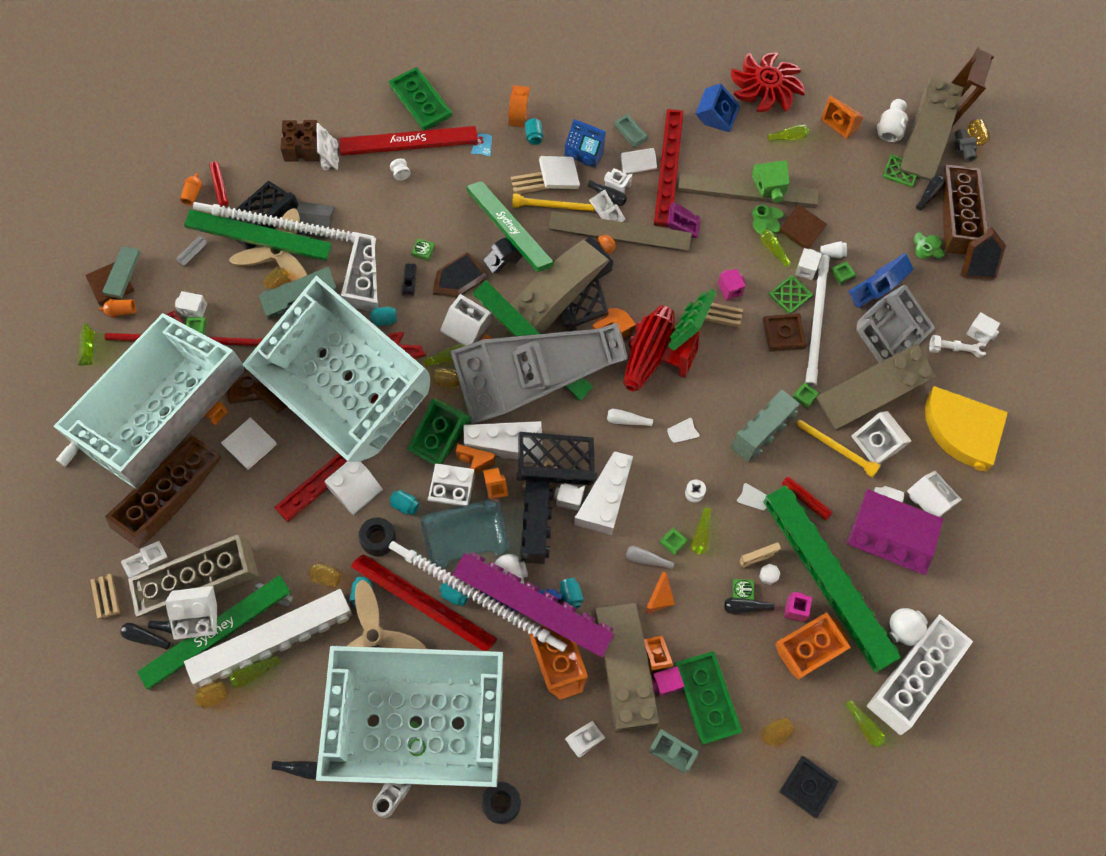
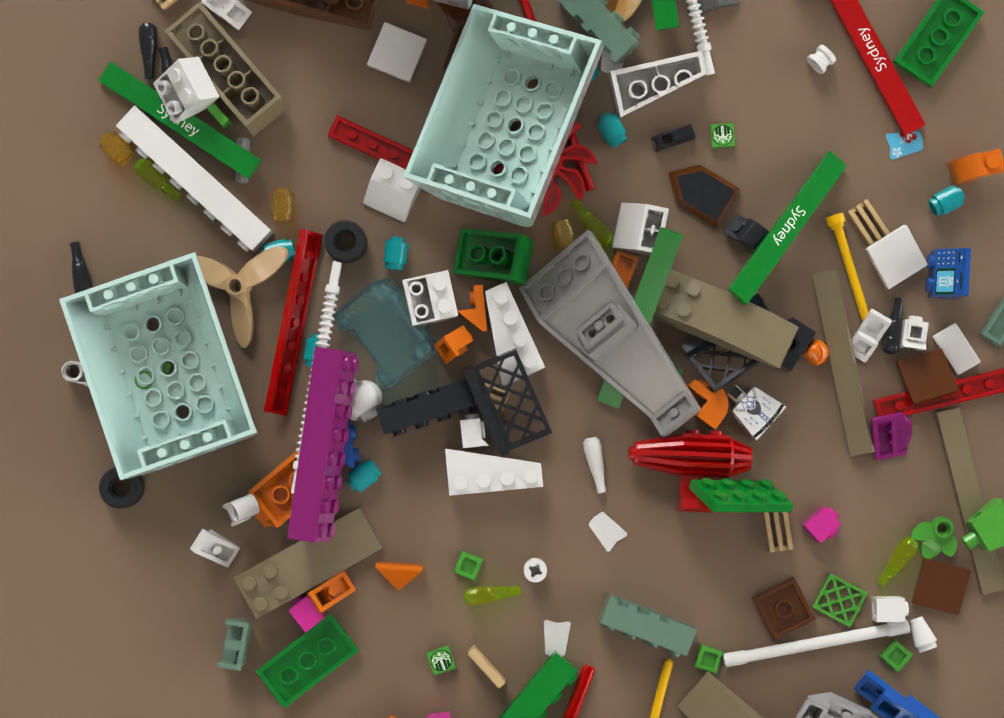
camera: 75 degrees right, 20 degrees up
(228, 597) = (219, 116): none -> bright green tile
(560, 701) = (242, 509): none -> white piece
(632, 296) = (754, 410): none -> white torso
(644, 557) = (436, 538): light grey piece -> none
(651, 184) = (927, 376): none -> reddish brown tile
(743, 606) = (421, 663): black piece -> none
(769, 574) = (470, 683): white tile -> none

